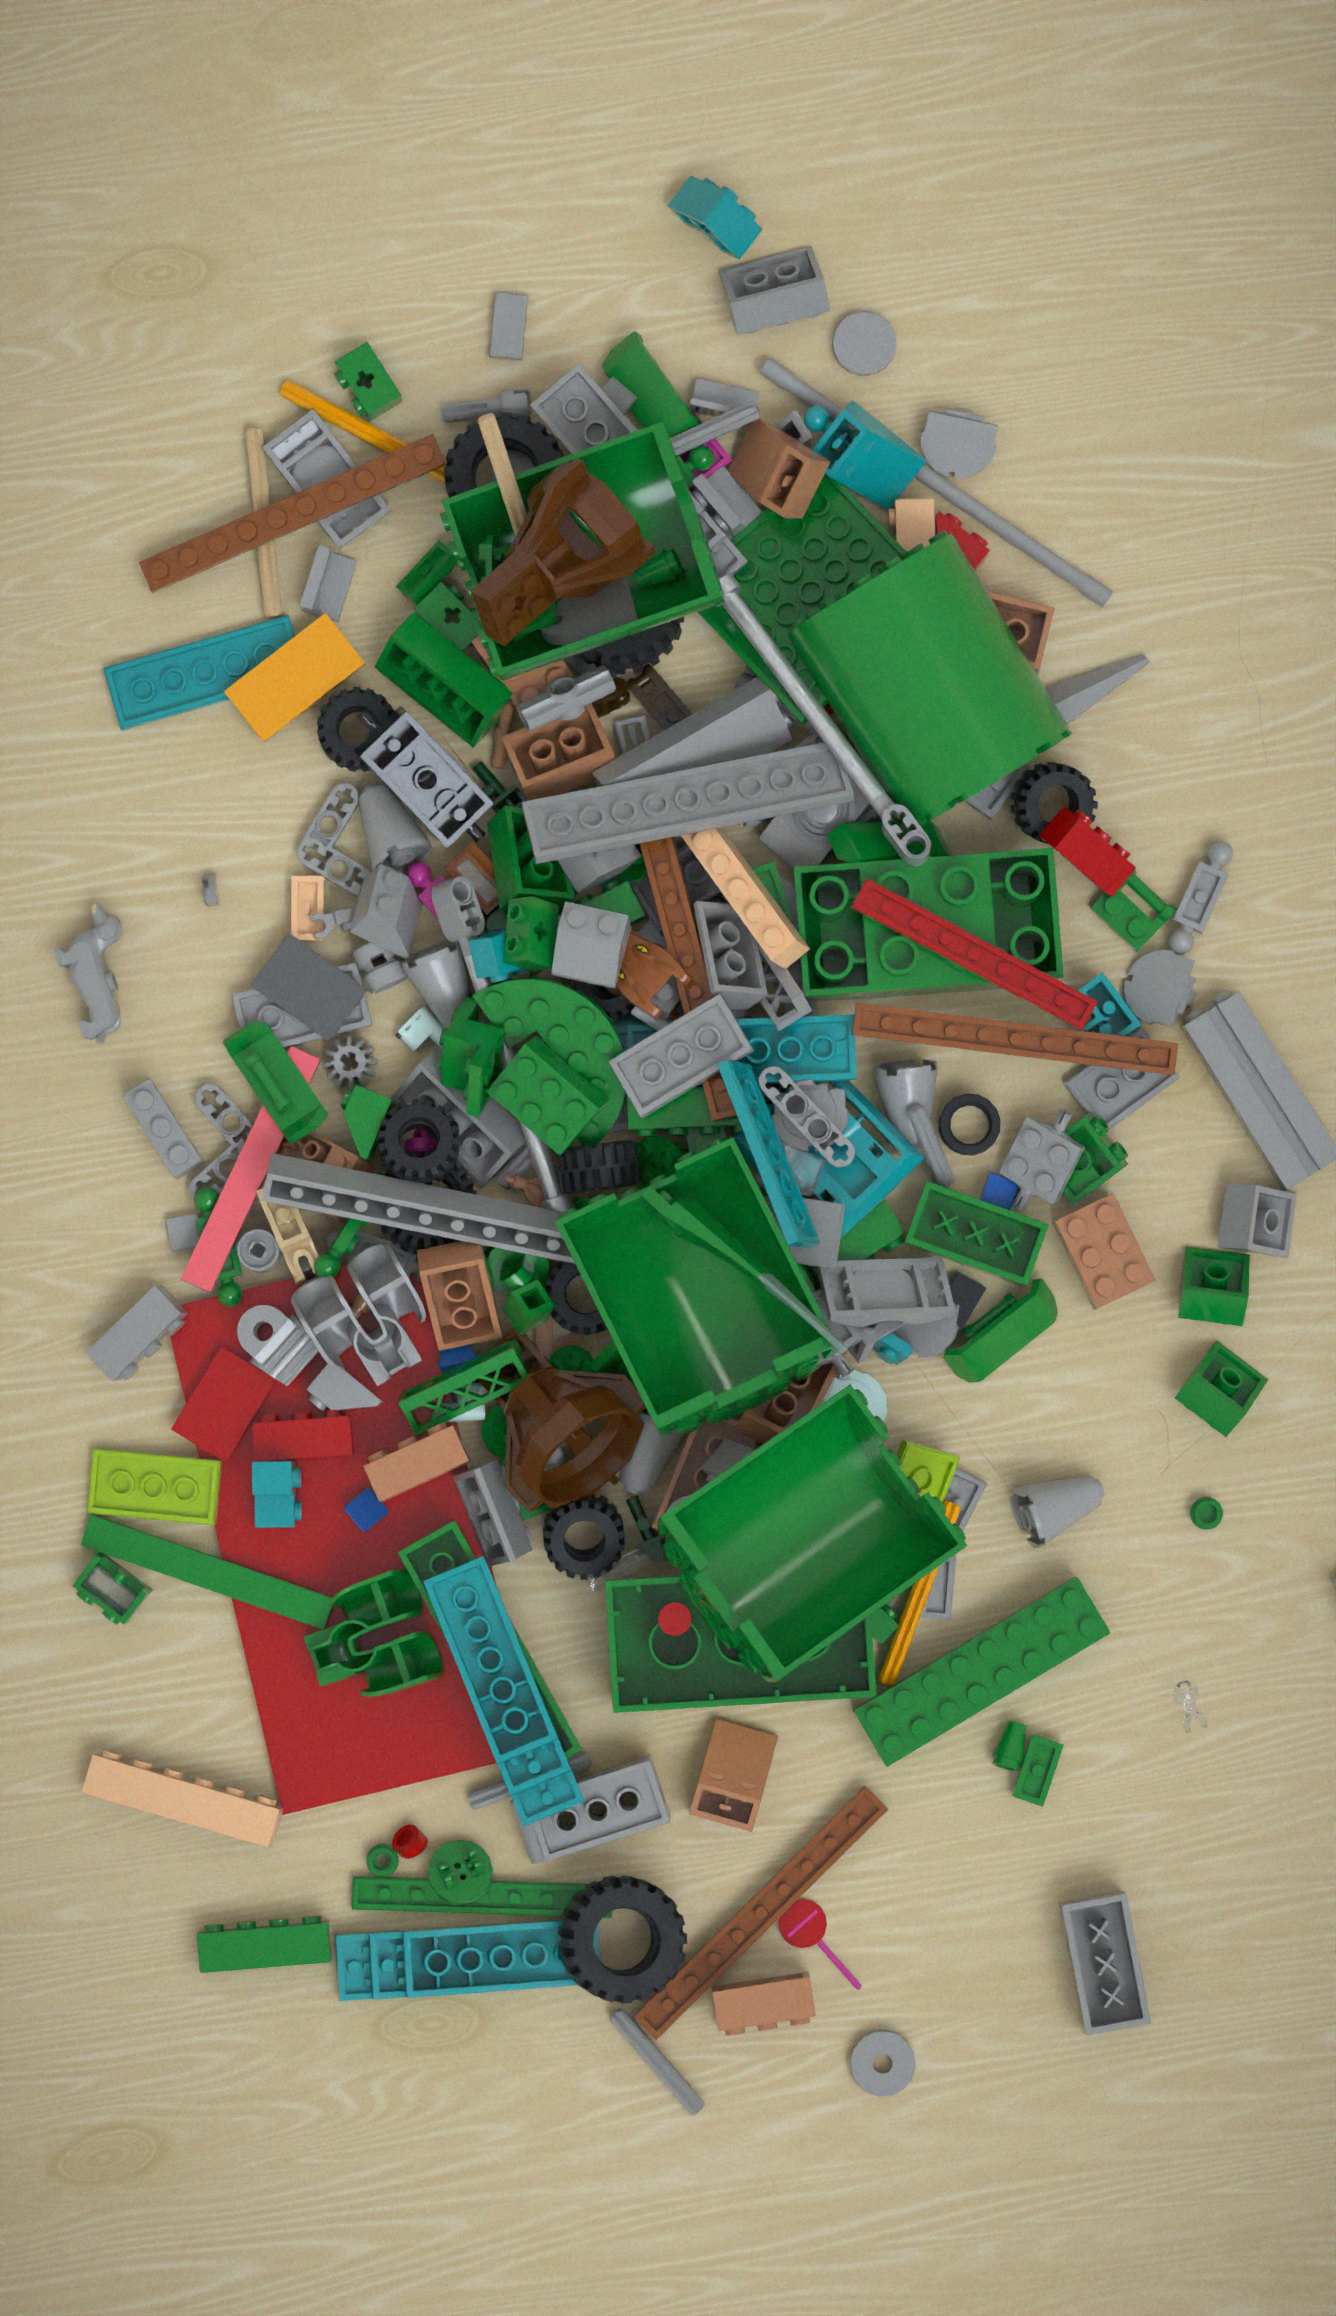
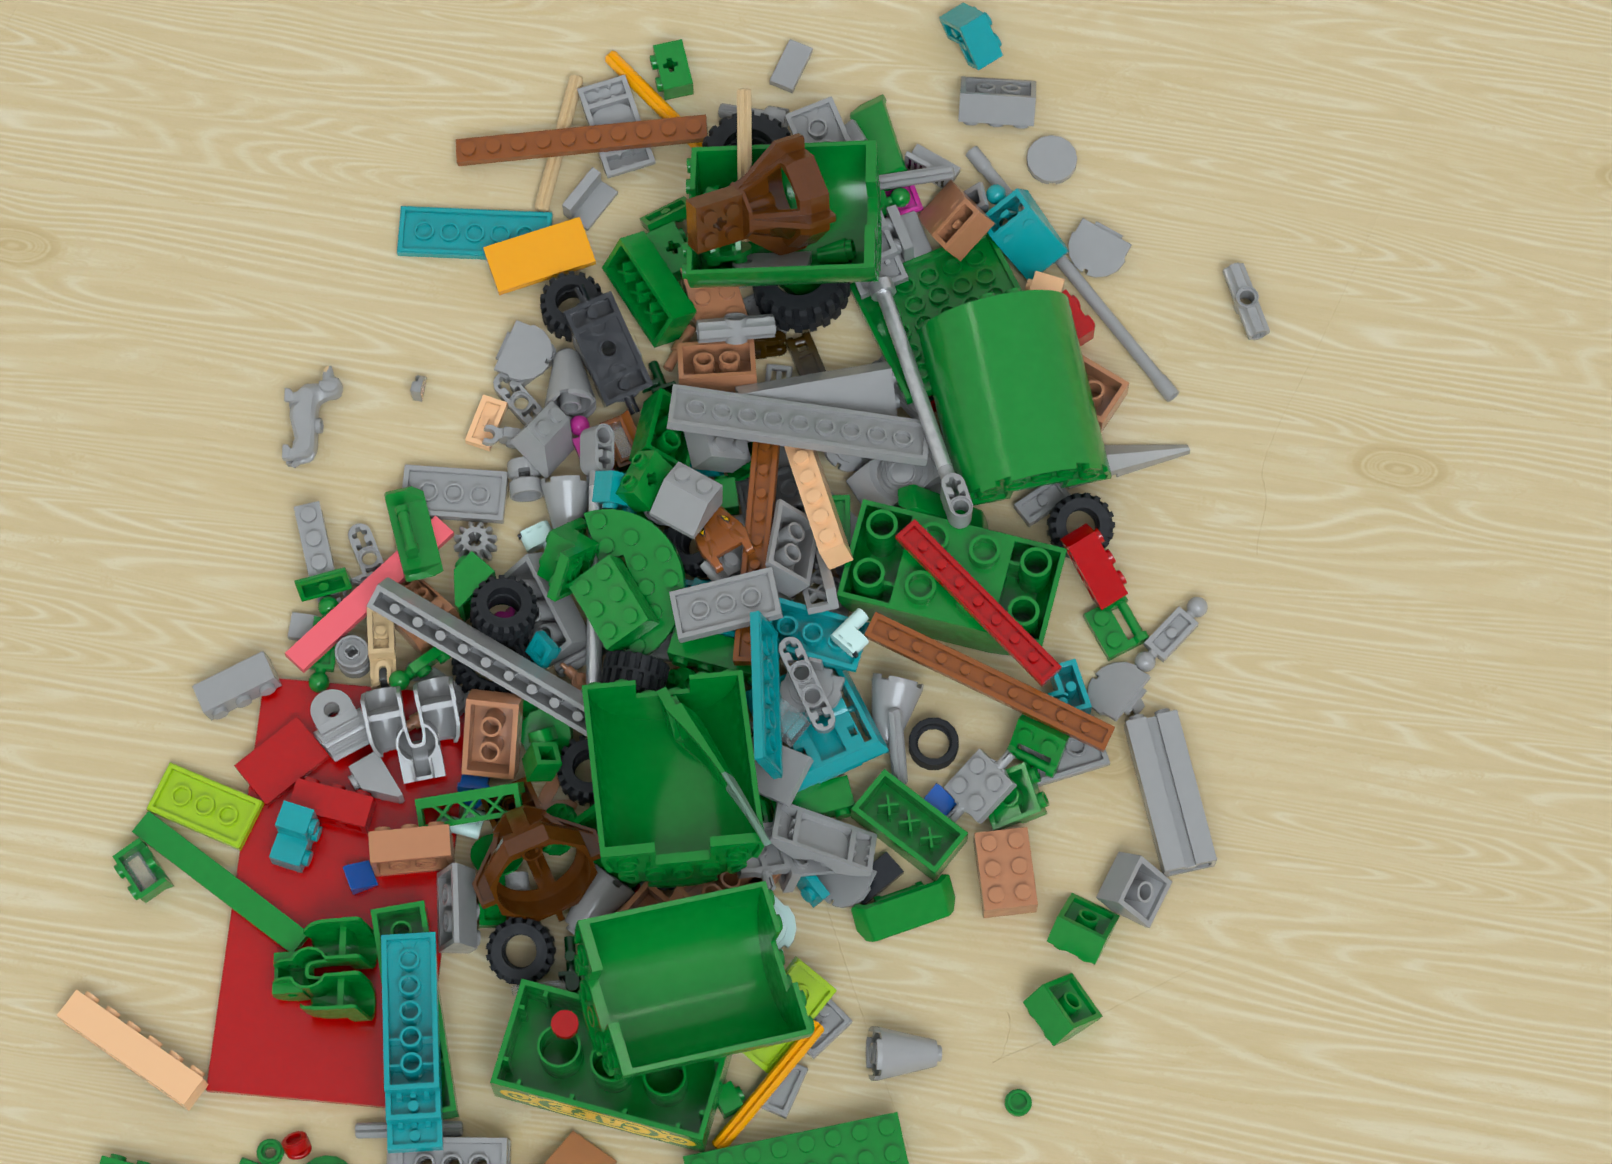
camera: 20 degrees right, 15 degrees down
(193, 1178) = (323, 584): none -> green slope
(309, 987) = (465, 477): dark grey tile -> none
(322, 808) = (524, 353): none -> light grey piece
(480, 1172) = (542, 649): none -> teal tile
(833, 1041) = (848, 635): none -> light aqua piece
(1093, 1083) = (1040, 739): none -> green plate
(1143, 433) = (1251, 314): none -> light grey piece

